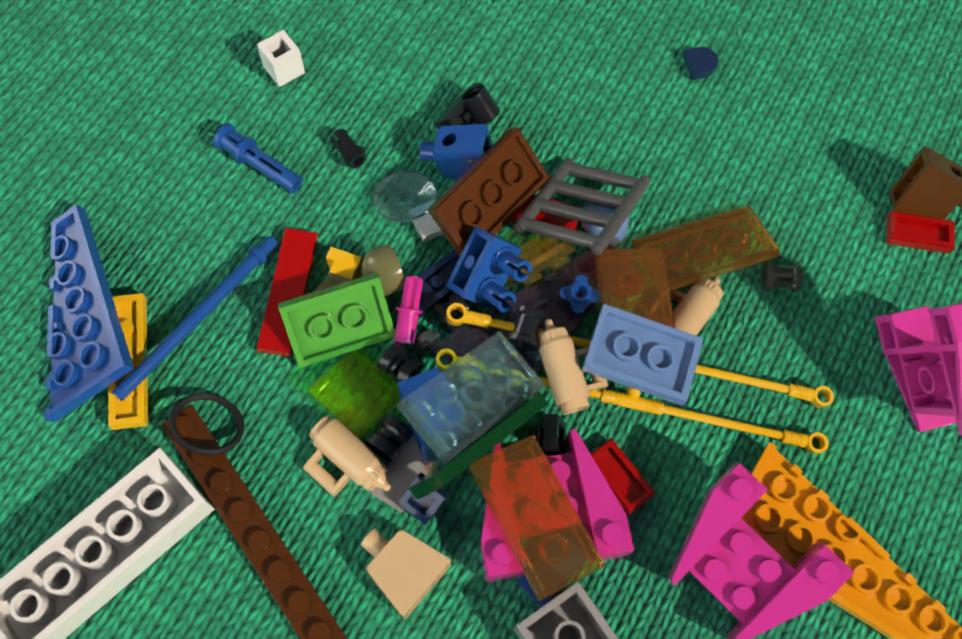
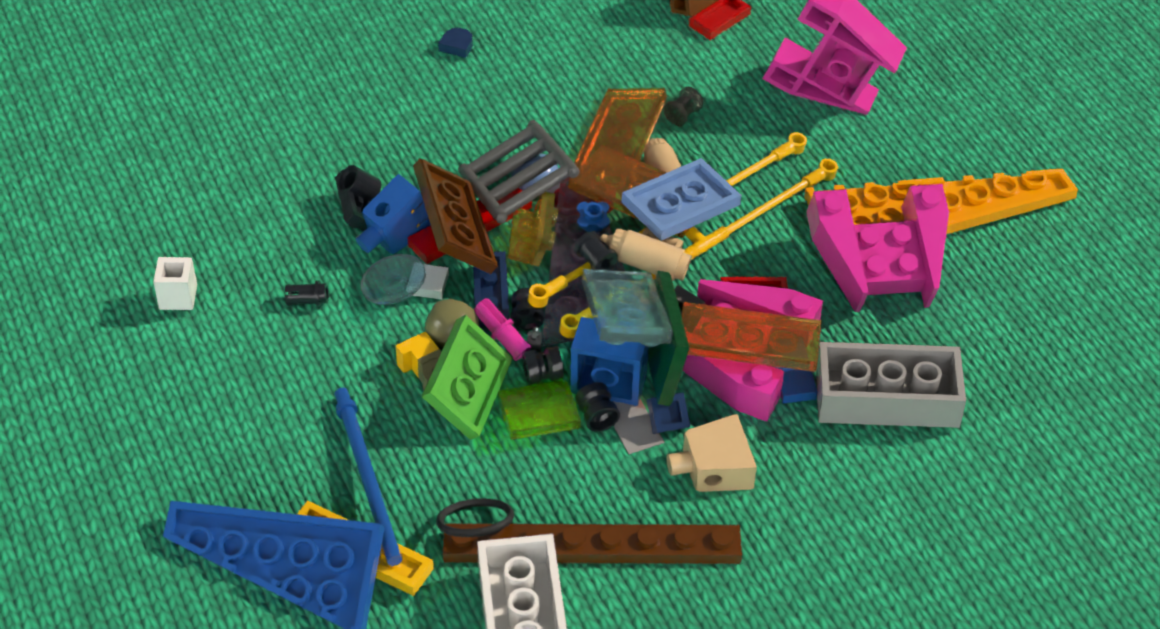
camera: 50 degrees left, 20 degrees down
(247, 151) = (237, 361): blue pin -> none
(289, 282) = (401, 408): red tile -> none
(348, 454) = (587, 441): tan piece -> none
(485, 269) = (514, 254): blue brick -> none

